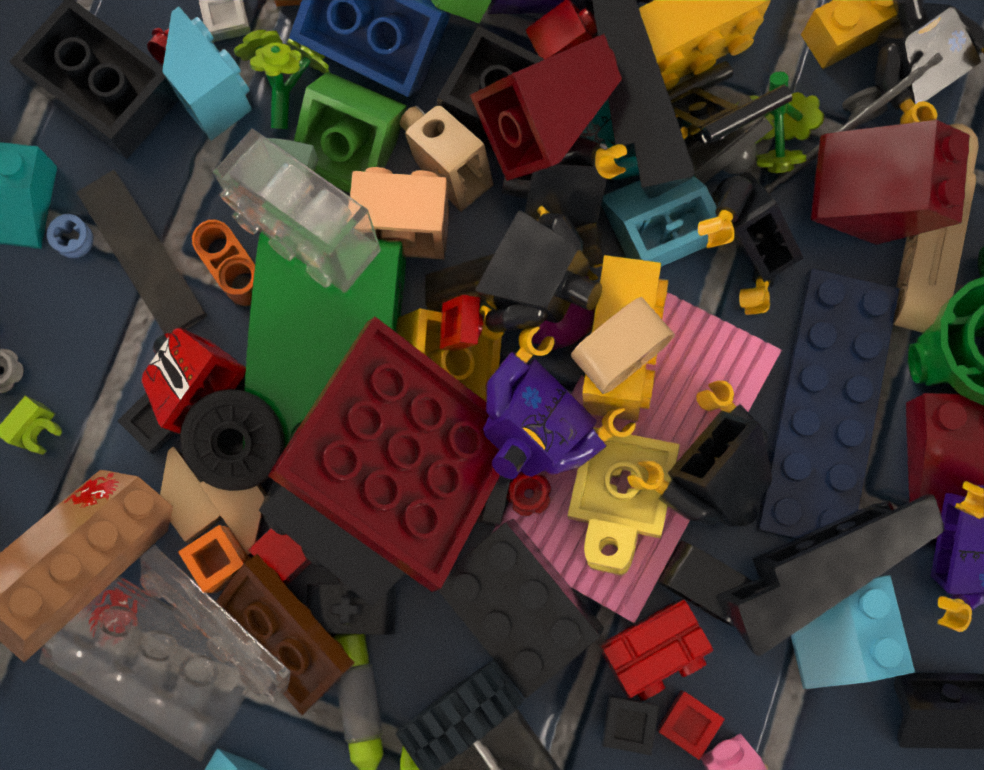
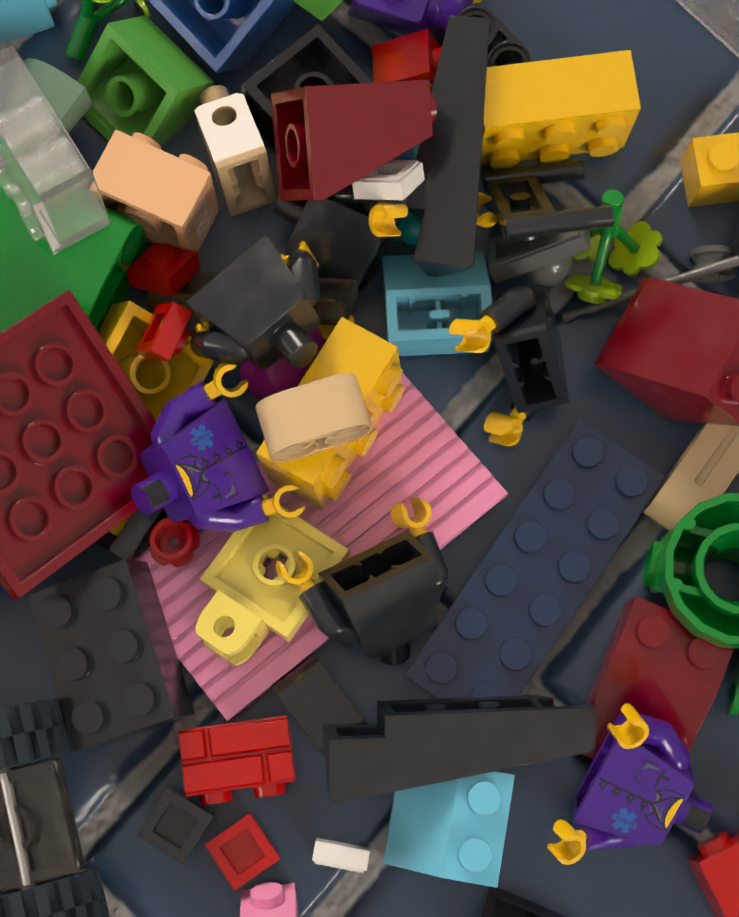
camera: 20 degrees right, 0 degrees up
(429, 273) = (163, 269): none -> red plate
(602, 130) = (390, 181): none -> white tile
(772, 695) = (341, 855): none -> white tile

